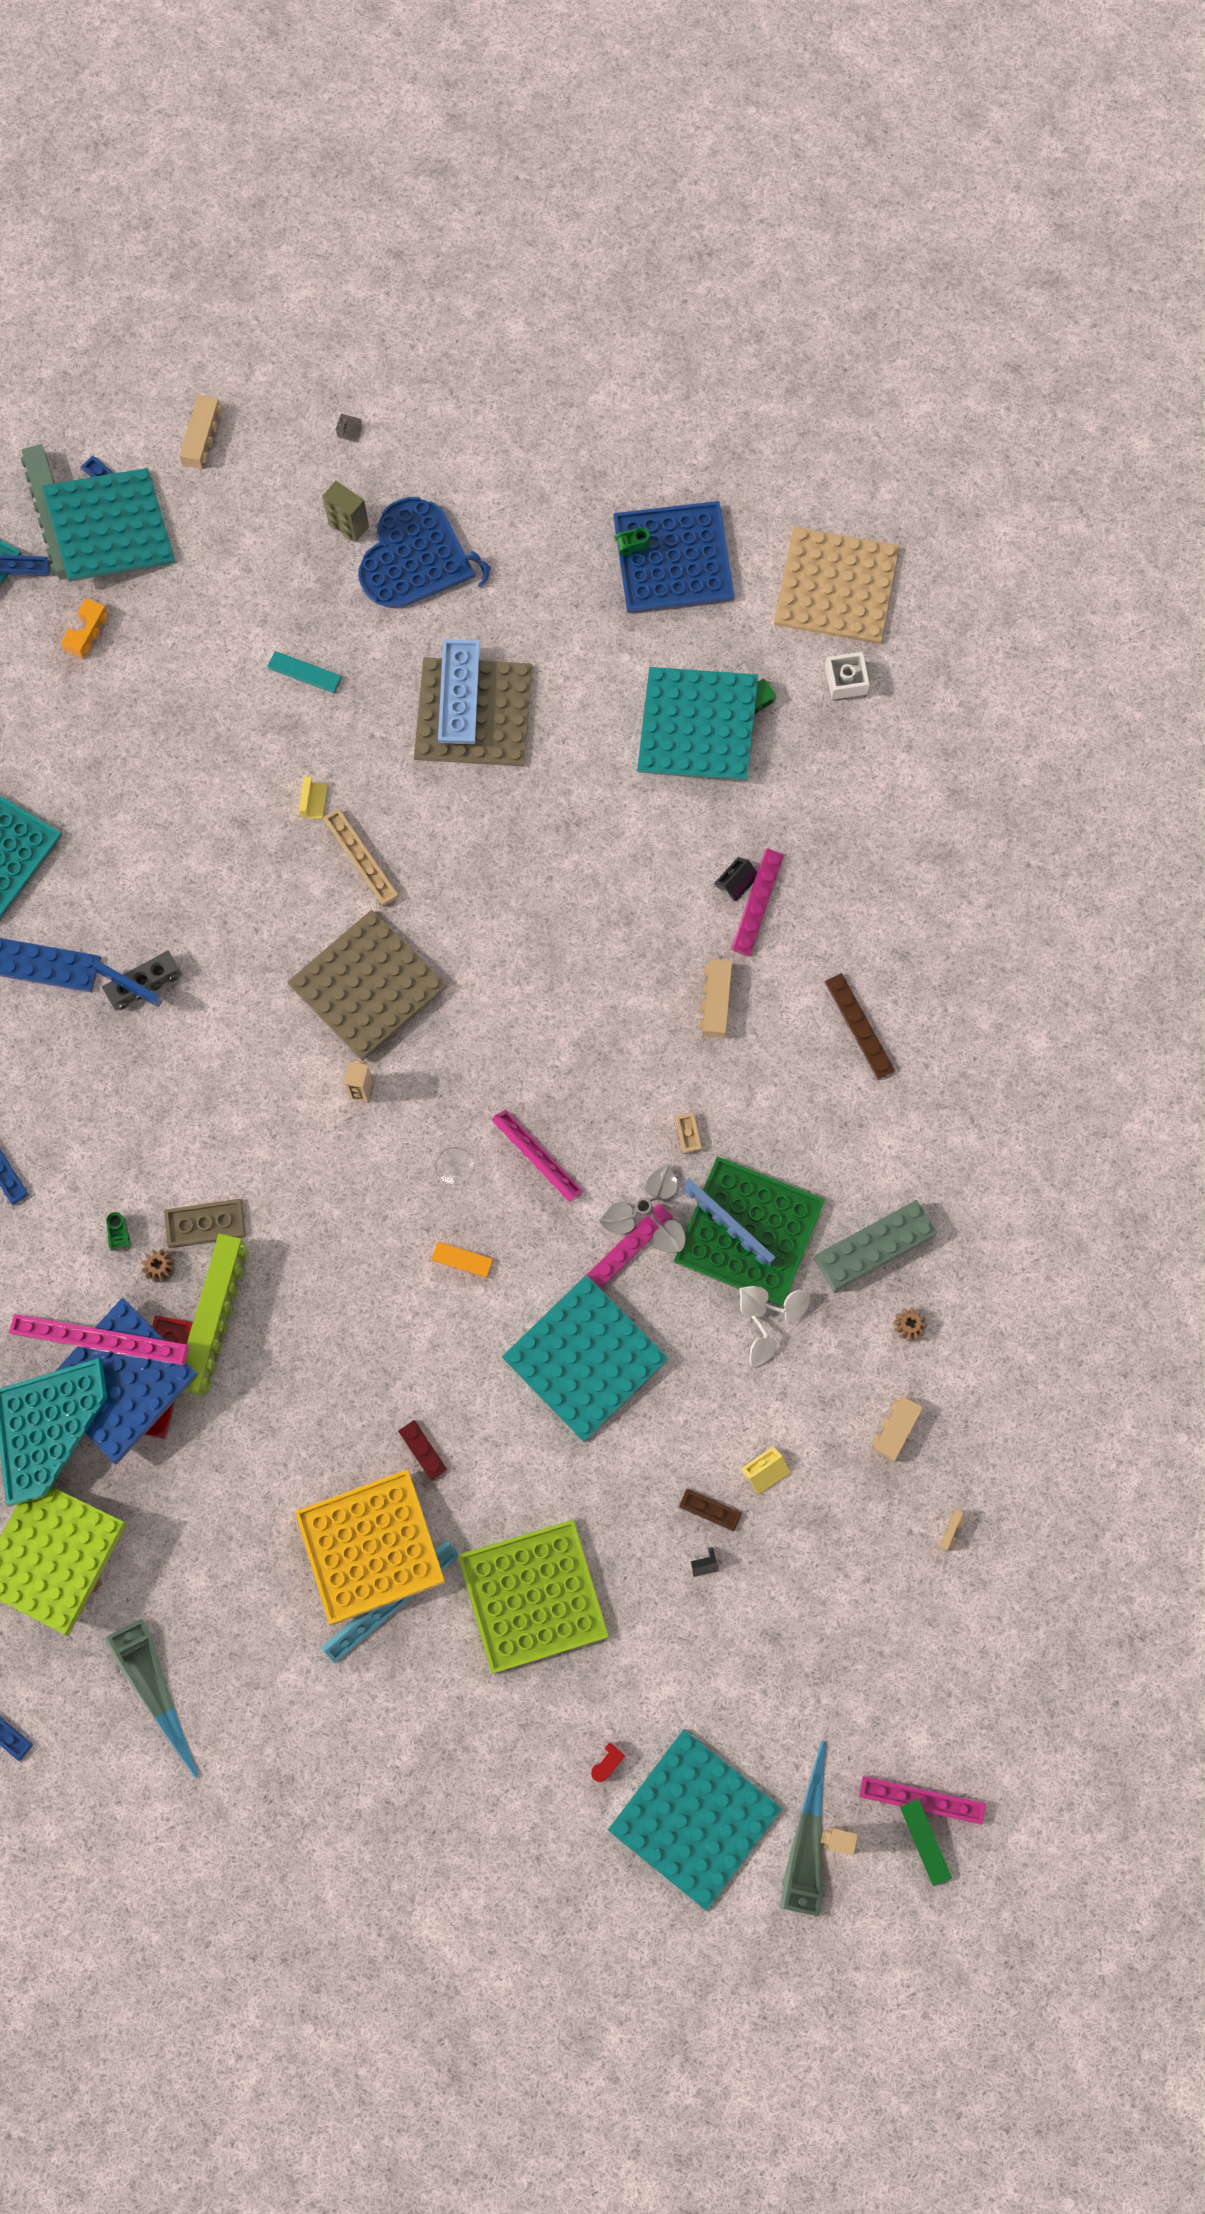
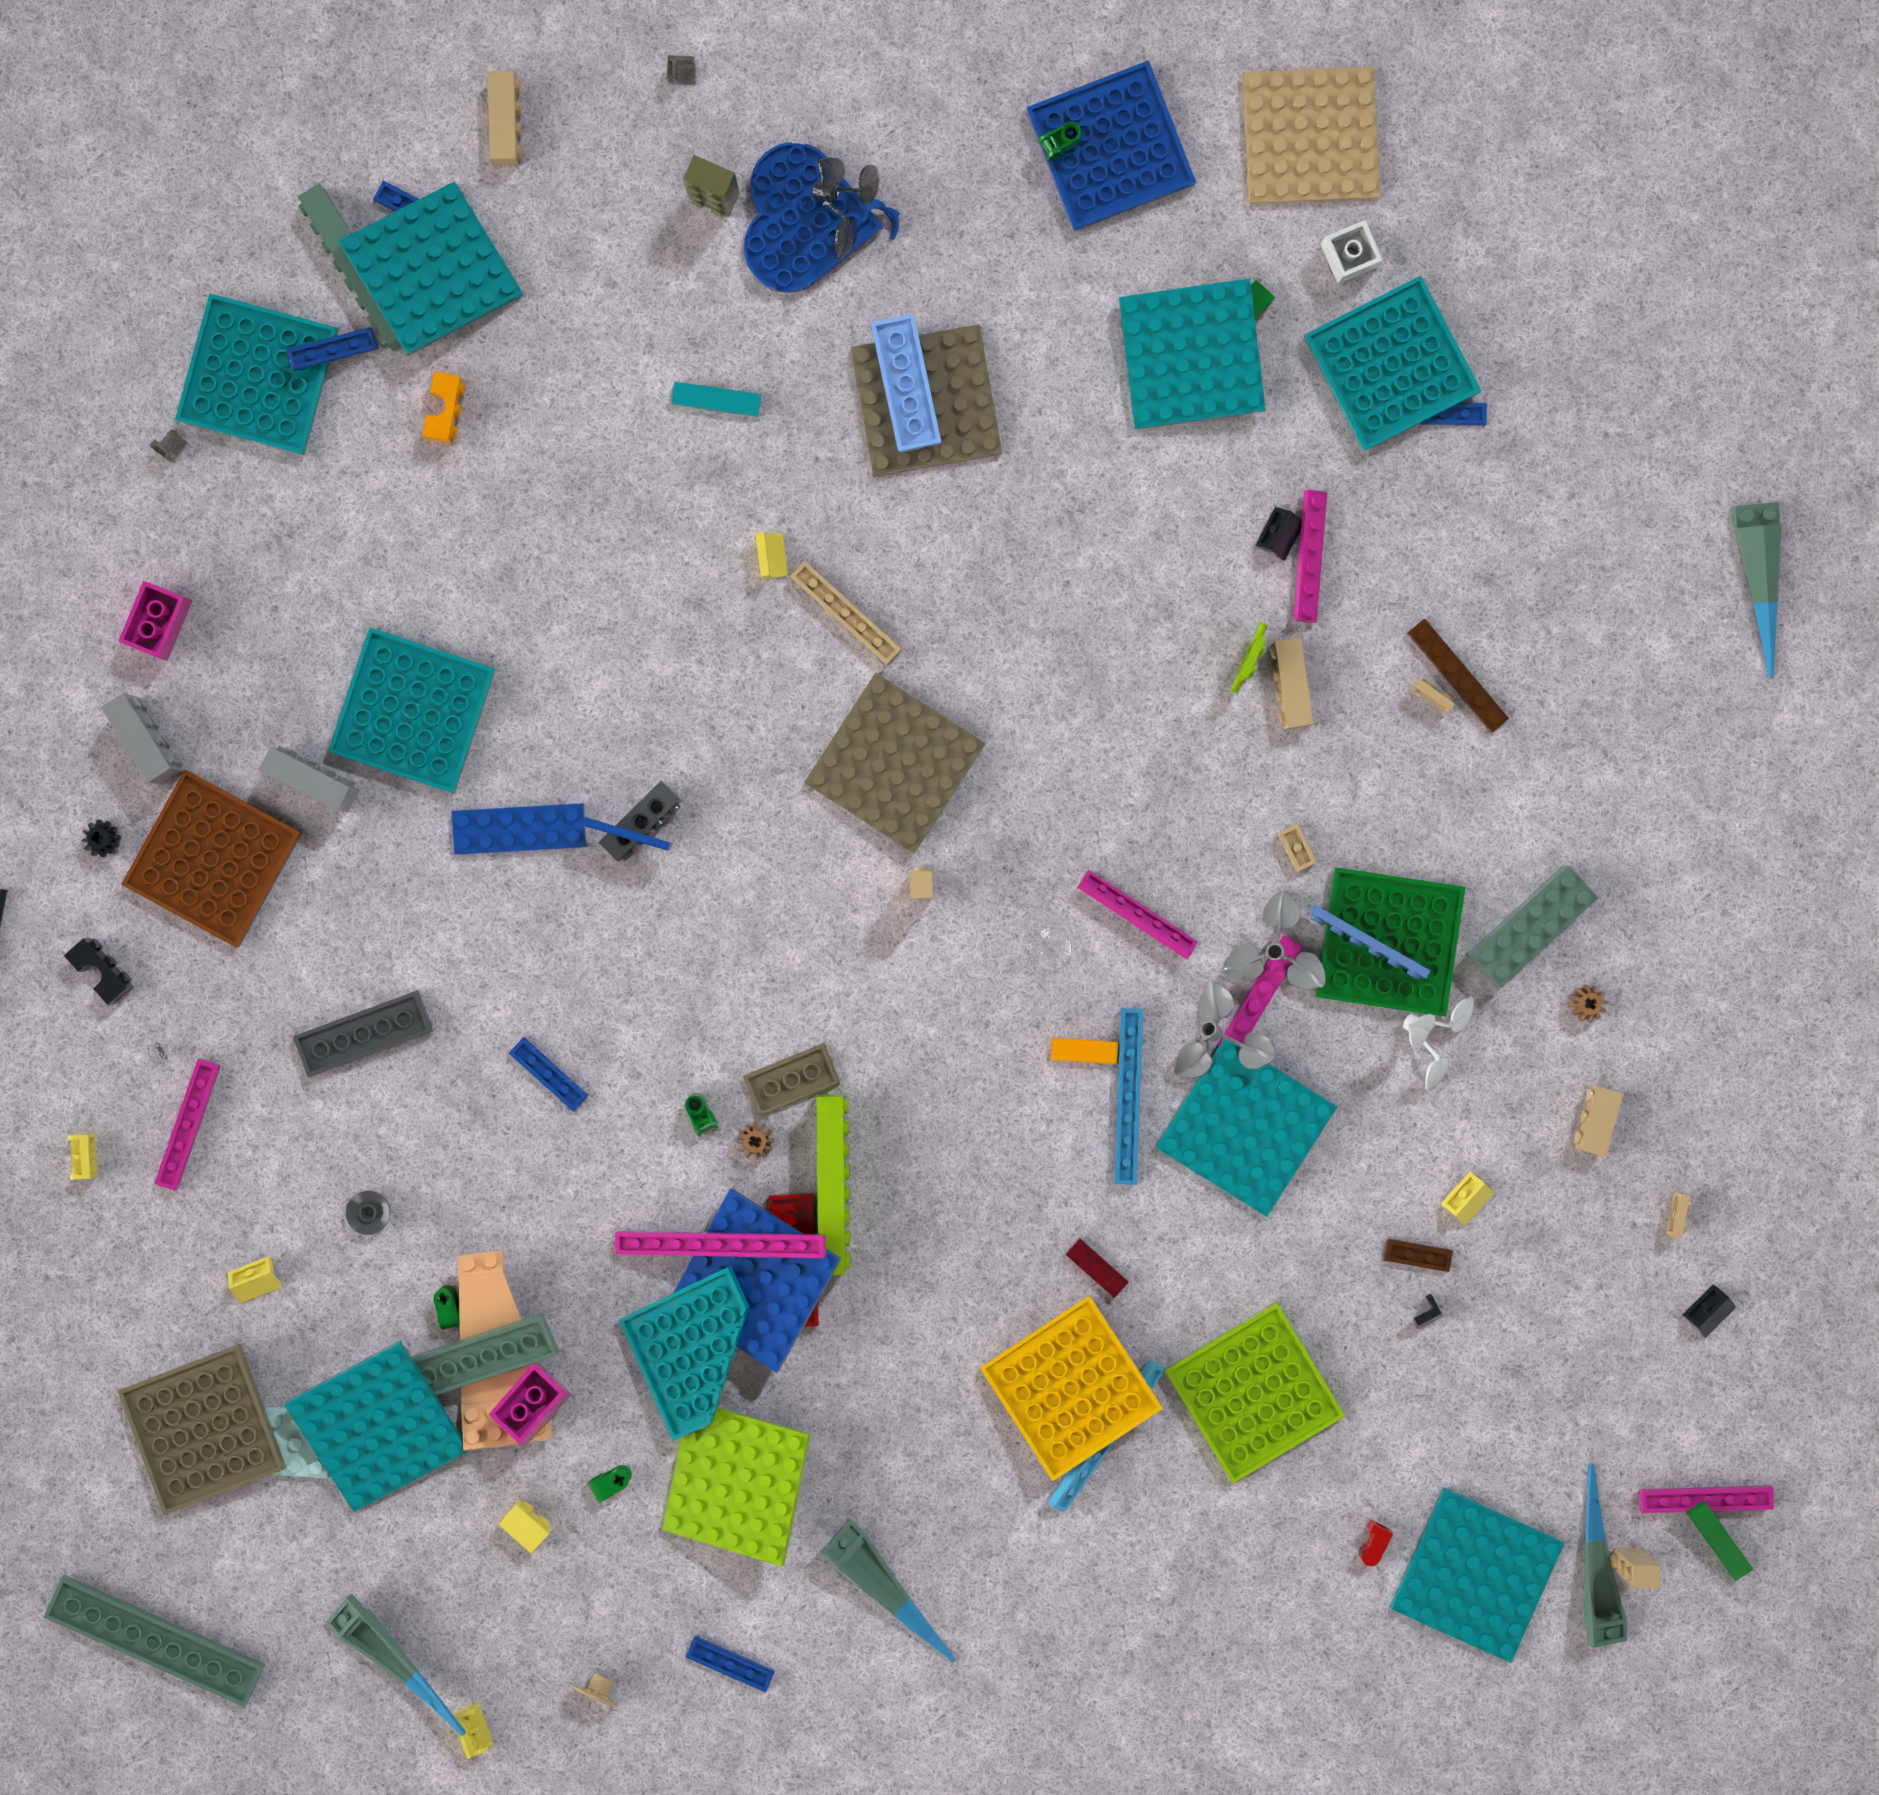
camera: 15 degrees left, 15 degrees up
(439, 519) = (828, 190): none -> clear smoke plant
(489, 1307) = (1128, 1096): none -> dark azure plate
(555, 1287) = (1193, 1057): none -> light grey plant
(687, 965) = (1254, 651): none -> lime plate
(839, 1040) = (1425, 689): none -> tan plate
(861, 768) = (1392, 363): none -> teal plate
(904, 819) = (1461, 414): none -> blue tile
(962, 1625) = (1709, 1310): none -> black panel
(1139, 980) = (1759, 543): none -> sand green plate

